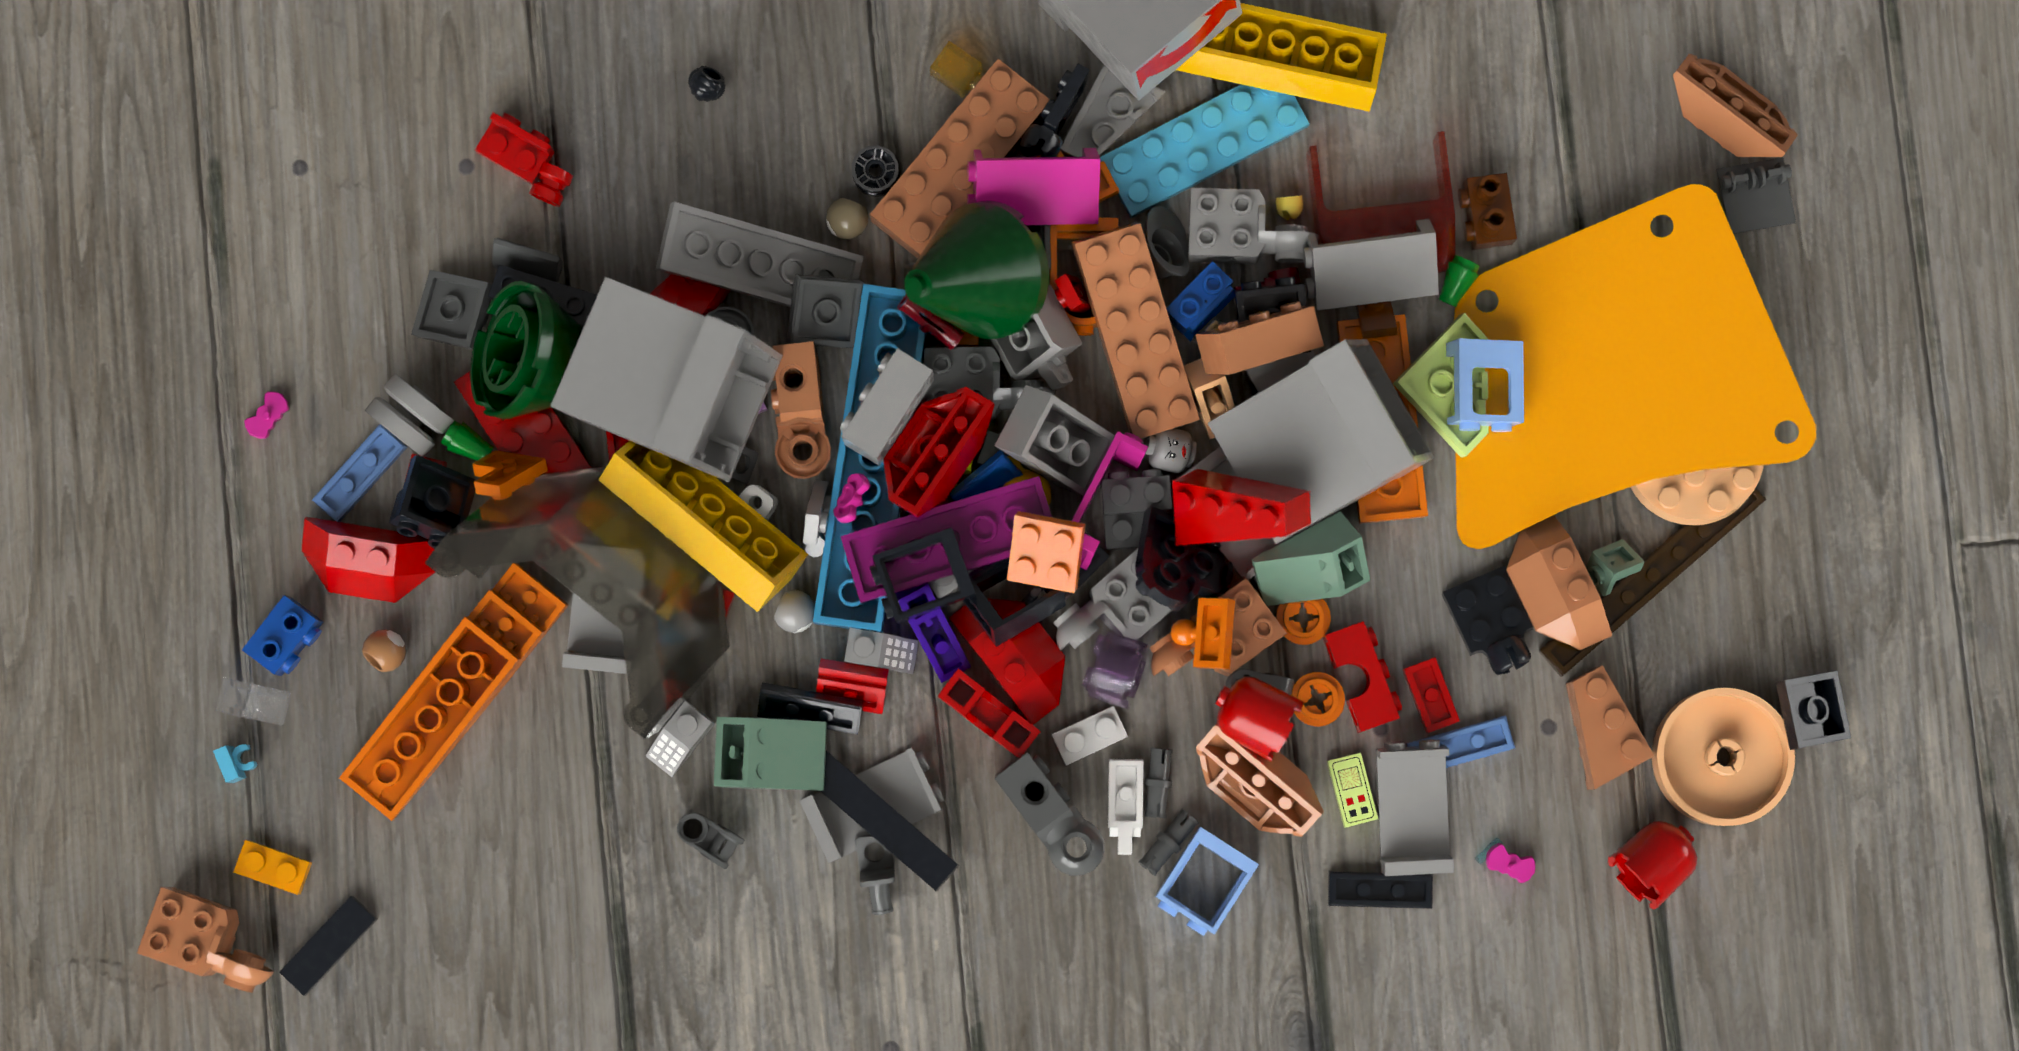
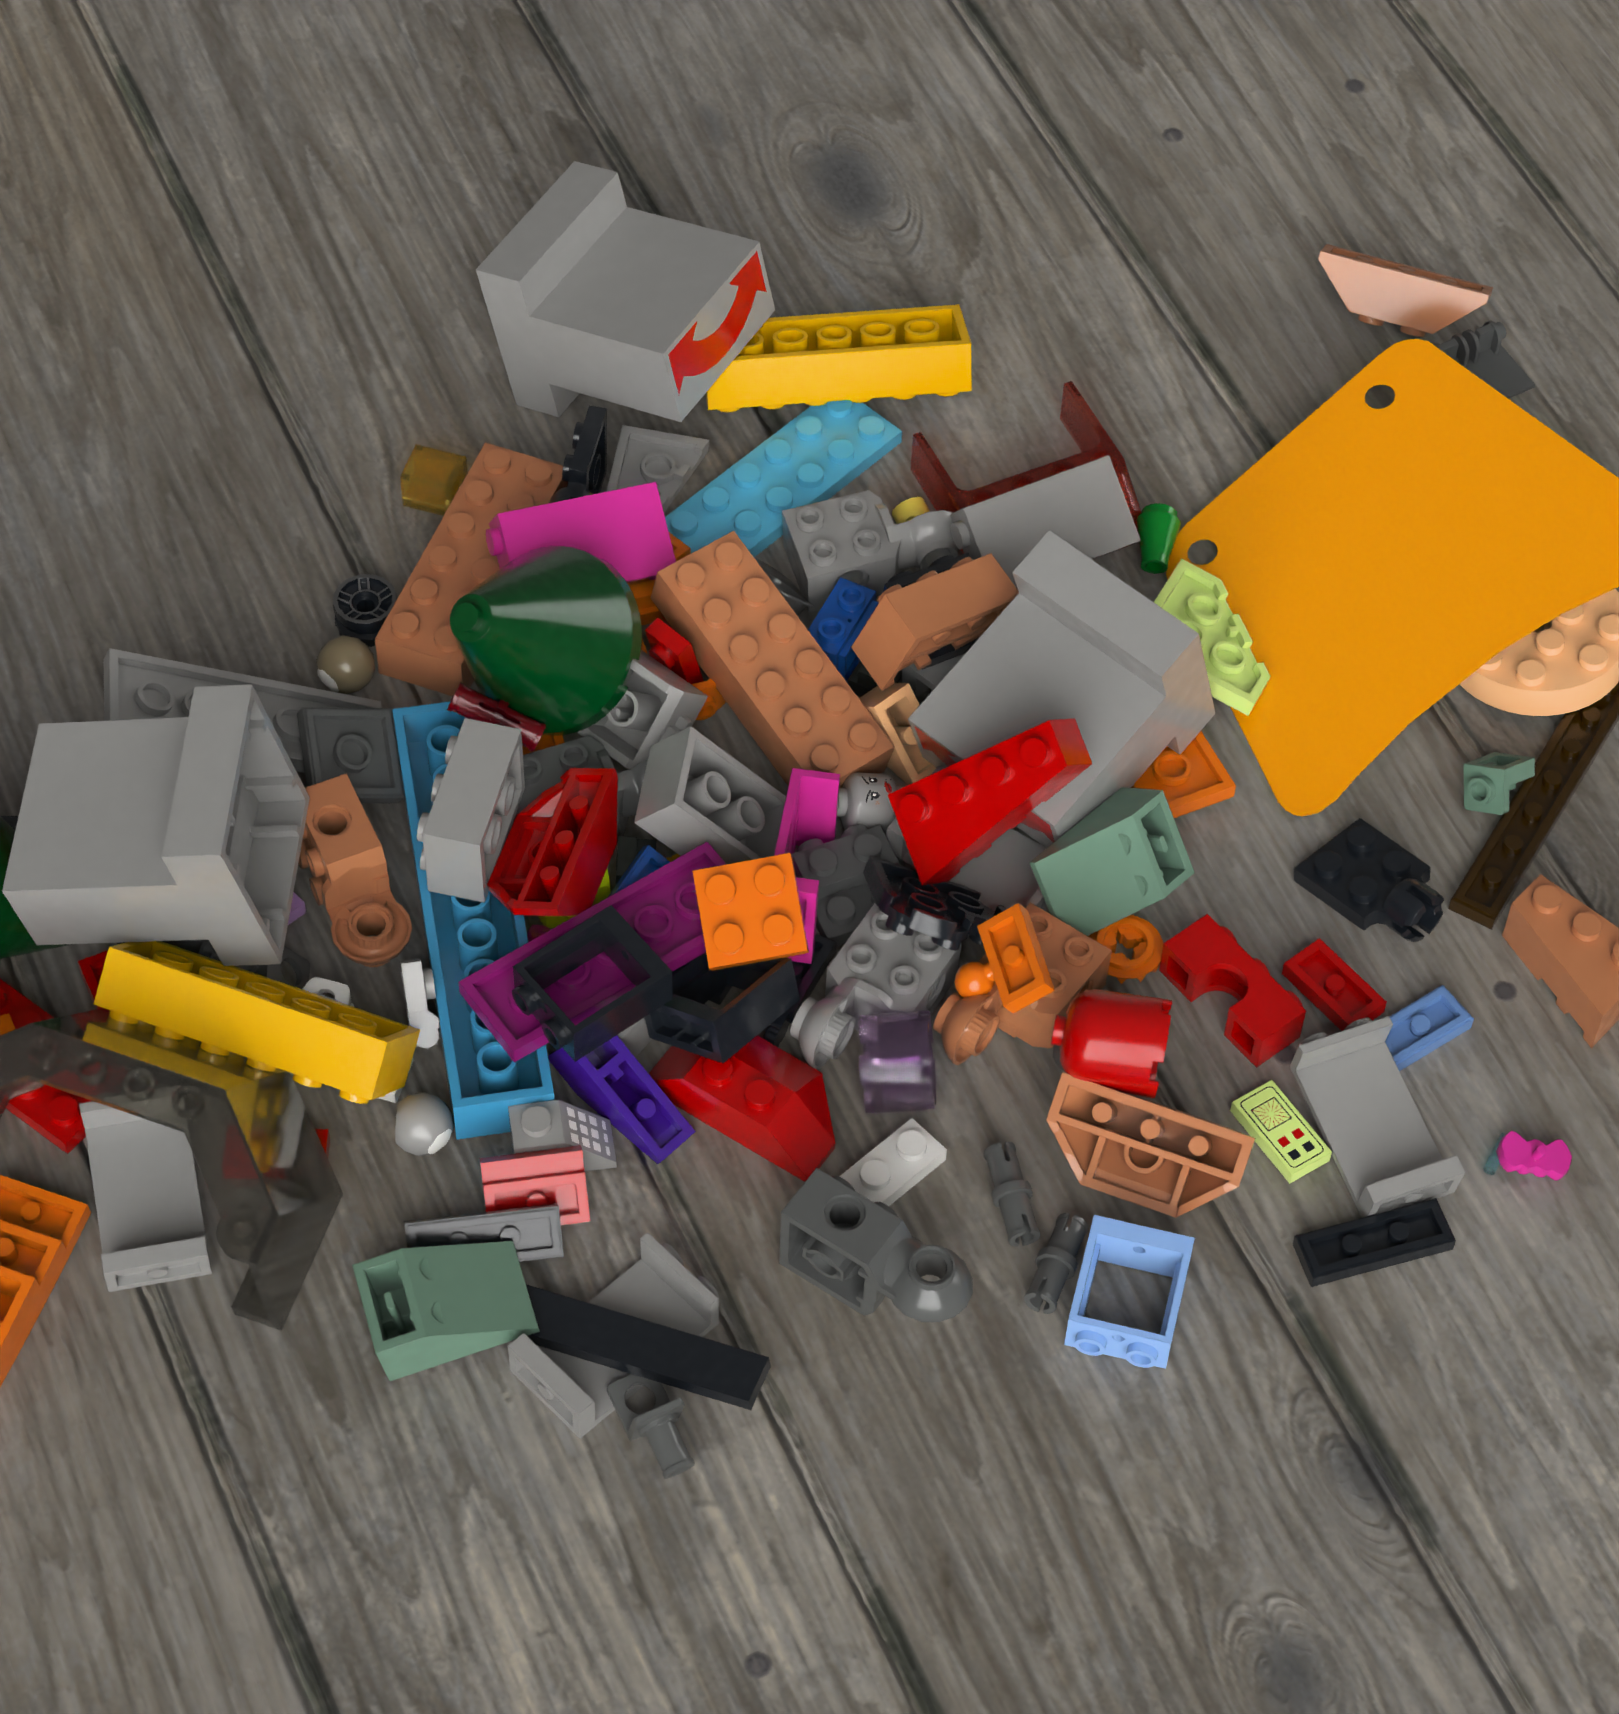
camera: 20 degrees left, 30 degrees down
(679, 738) = (305, 1326): light grey slope -> none
(706, 84) = (111, 574): black piece -> none
(711, 839) = (393, 1446): dark grey piece -> none
(851, 497) = (457, 939): dark pink piece -> none
(988, 714) = (707, 1161): red arch -> none
(1125, 801) = (976, 1230): white hinge -> none
(1332, 705) = (1207, 1040): orange gear -> none
(1486, 354) = (1243, 578): light blue window -> none
(1488, 211) = (1162, 454): reddish brown brick -> none
(1557, 586) = (1444, 814): nougat wedge -> none

